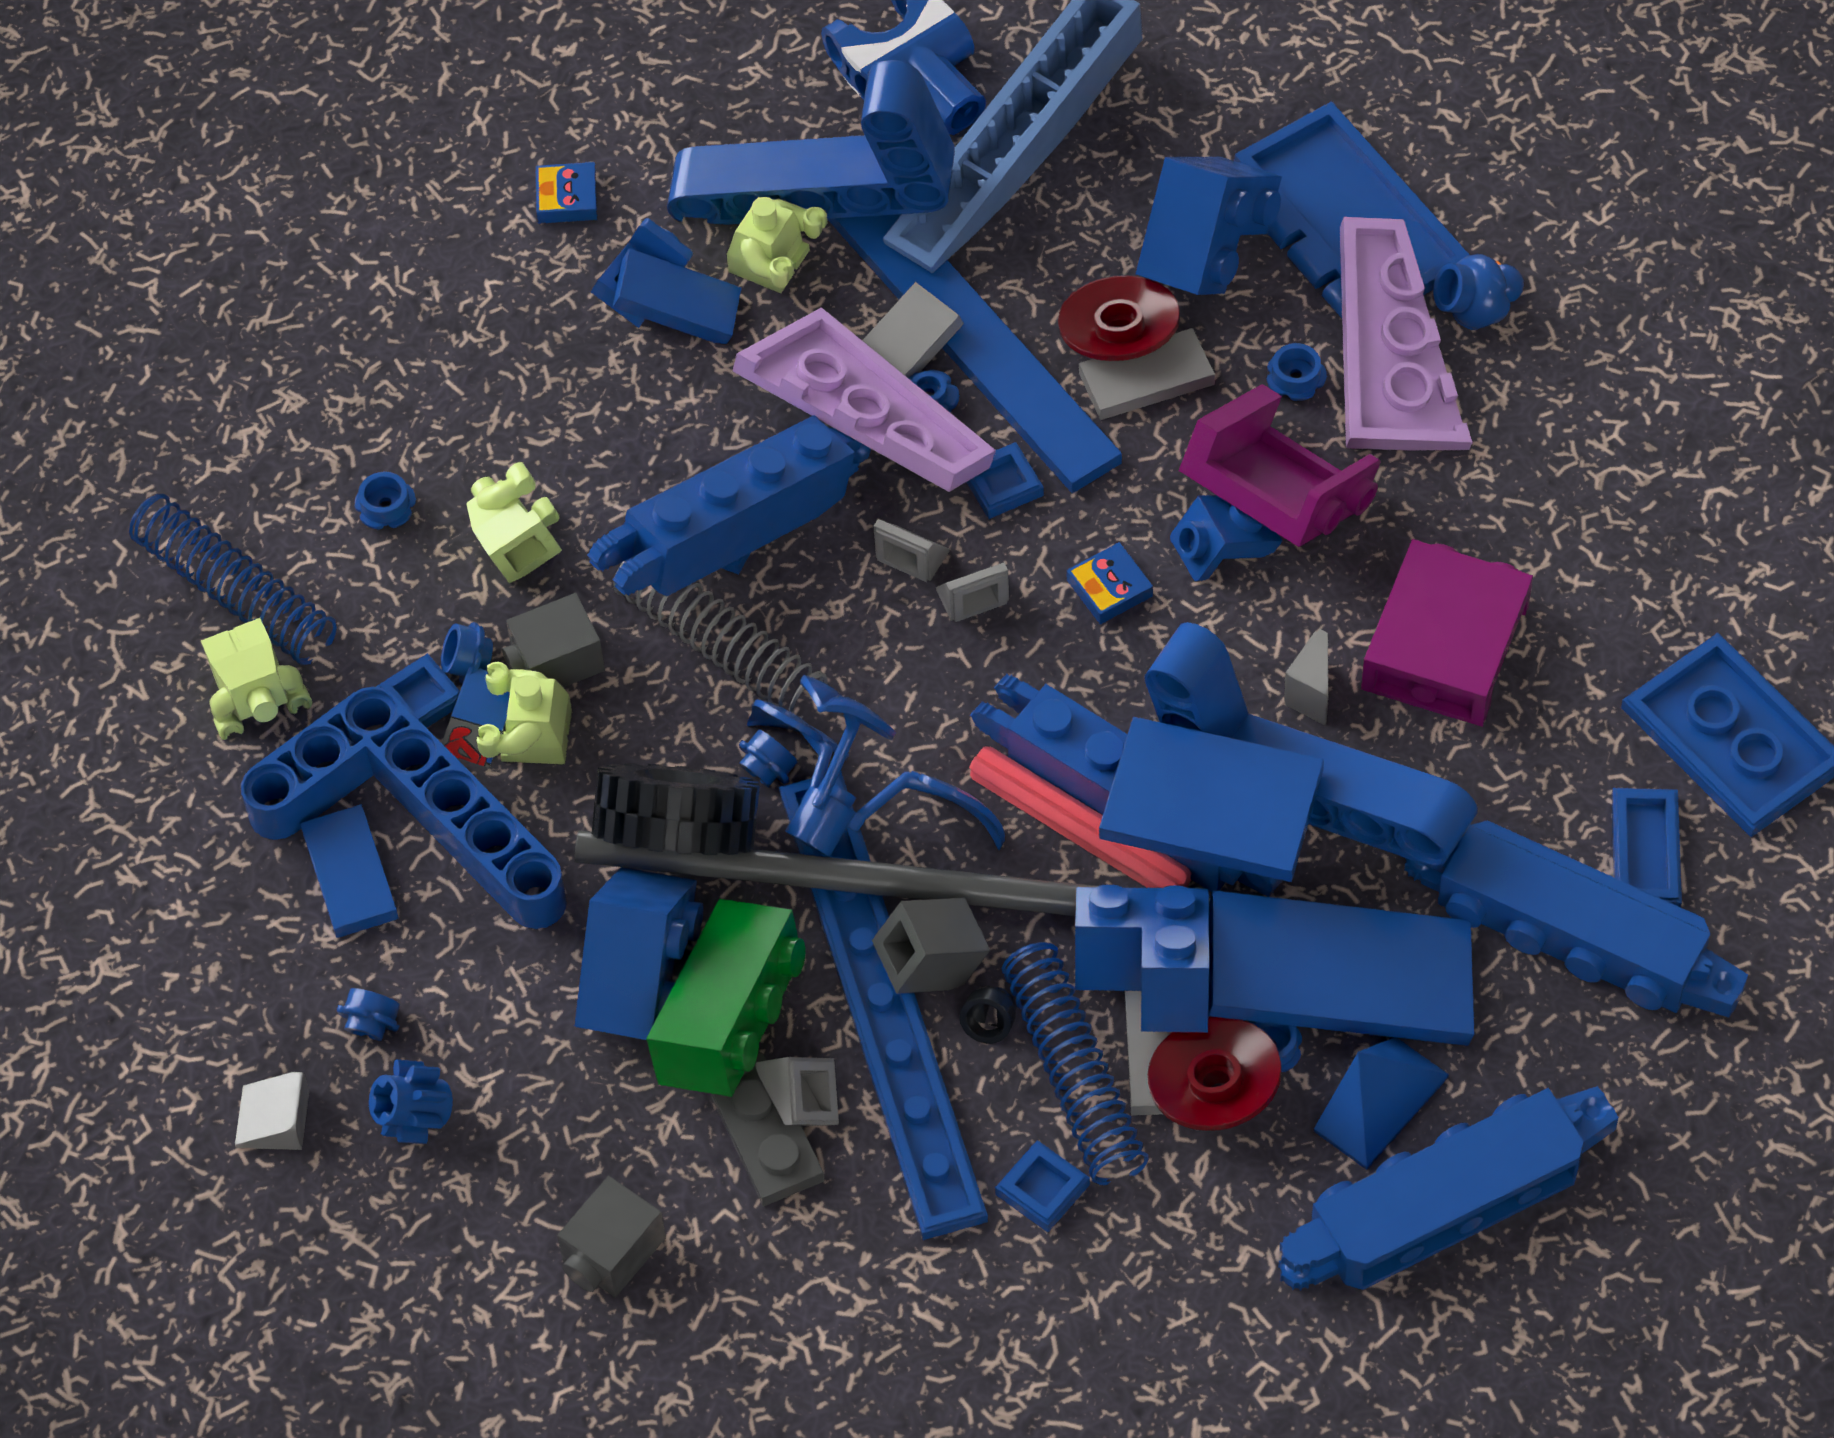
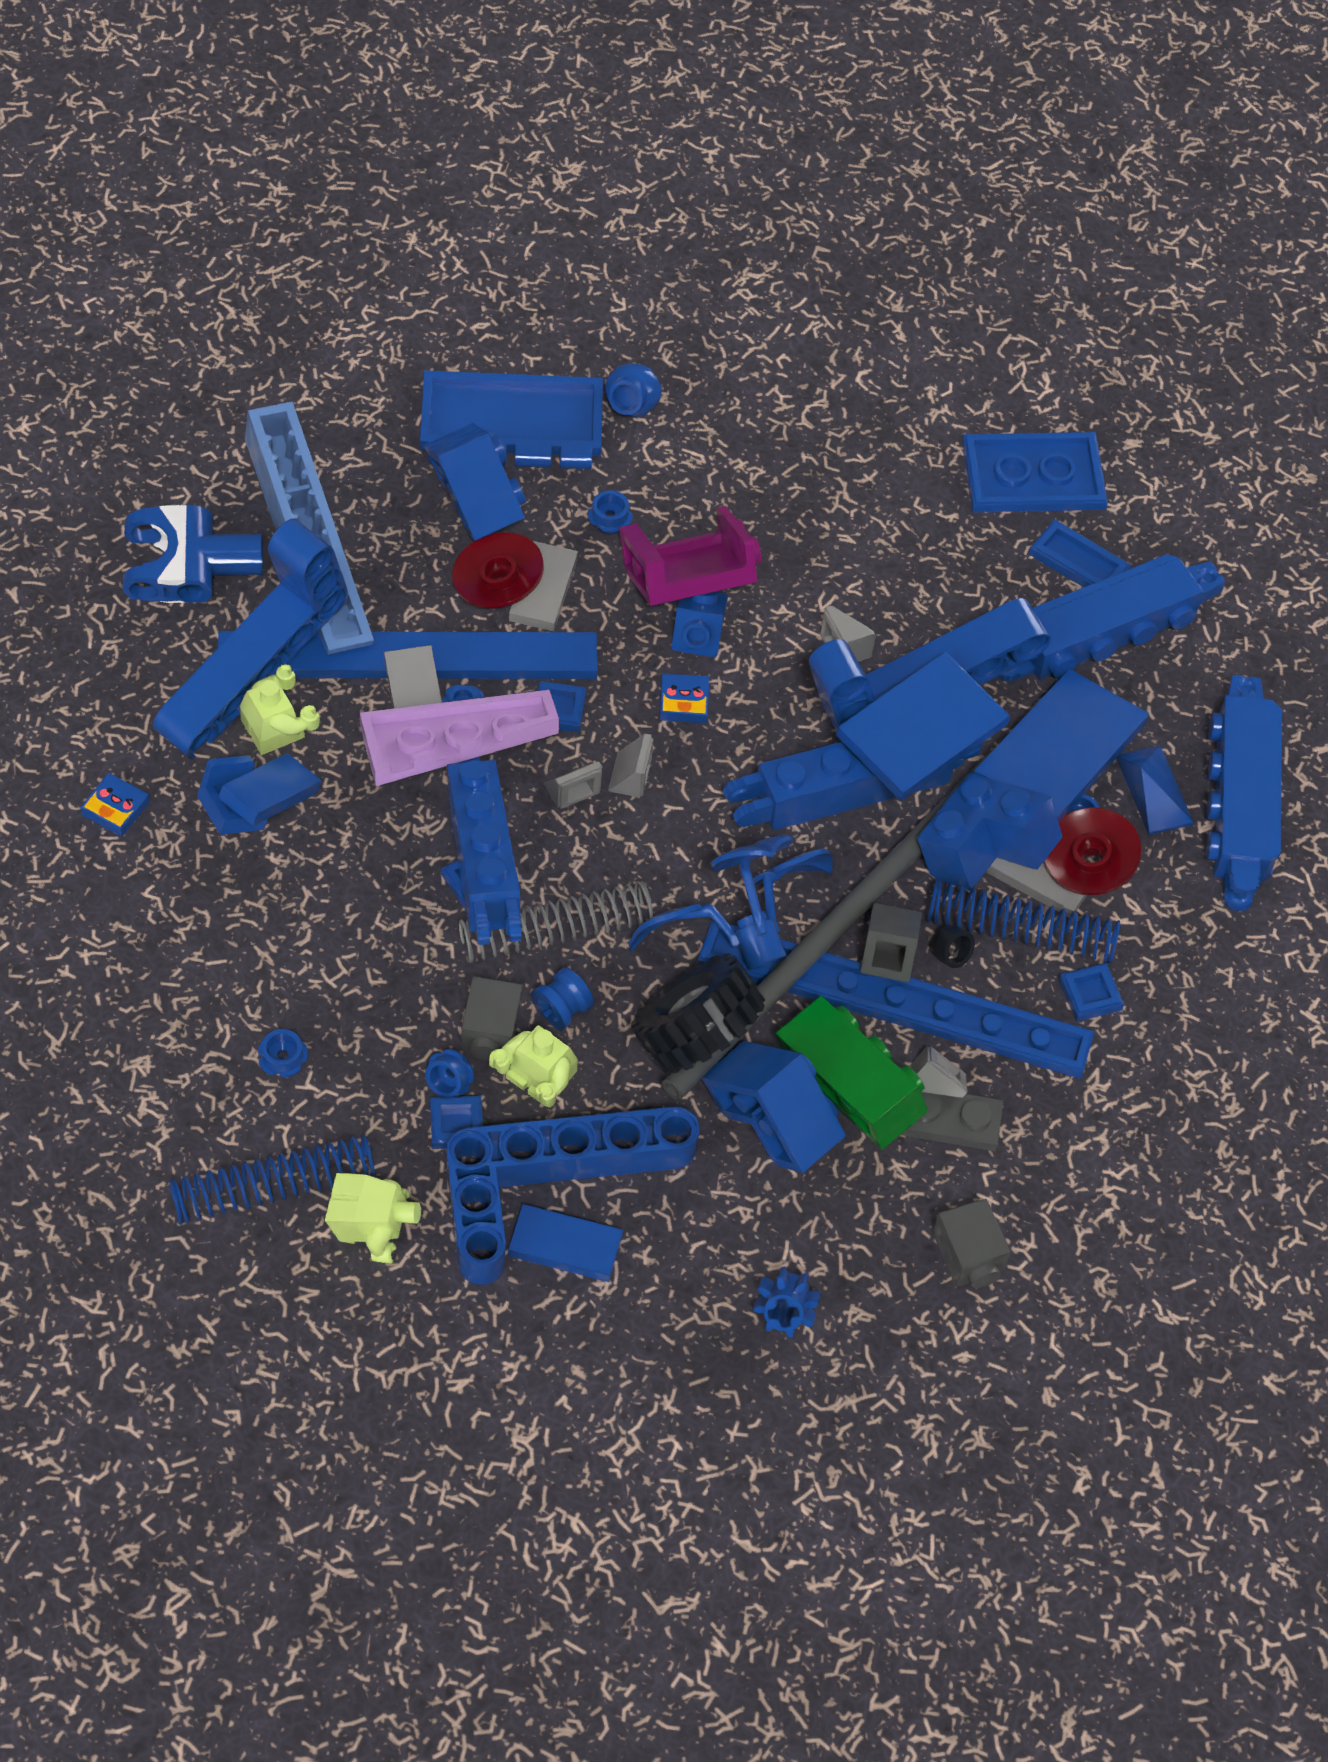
camera: 65 degrees left, 0 degrees up
(273, 1113) = (725, 1393): slope -> none
(369, 1013) = (693, 1292): blue plate -> none
(472, 710) = (505, 1096): blue sticker -> none
(507, 531) = (372, 988): yellowish green piece -> none
(627, 693) = (562, 998): none -> blue wheel
(766, 759) = (672, 953): blue plate -> none
(1072, 819) = (852, 817): coral axle -> none
(1391, 349) = (654, 464): lavender wing -> none
(1446, 631) = (868, 552): magenta panel -> none

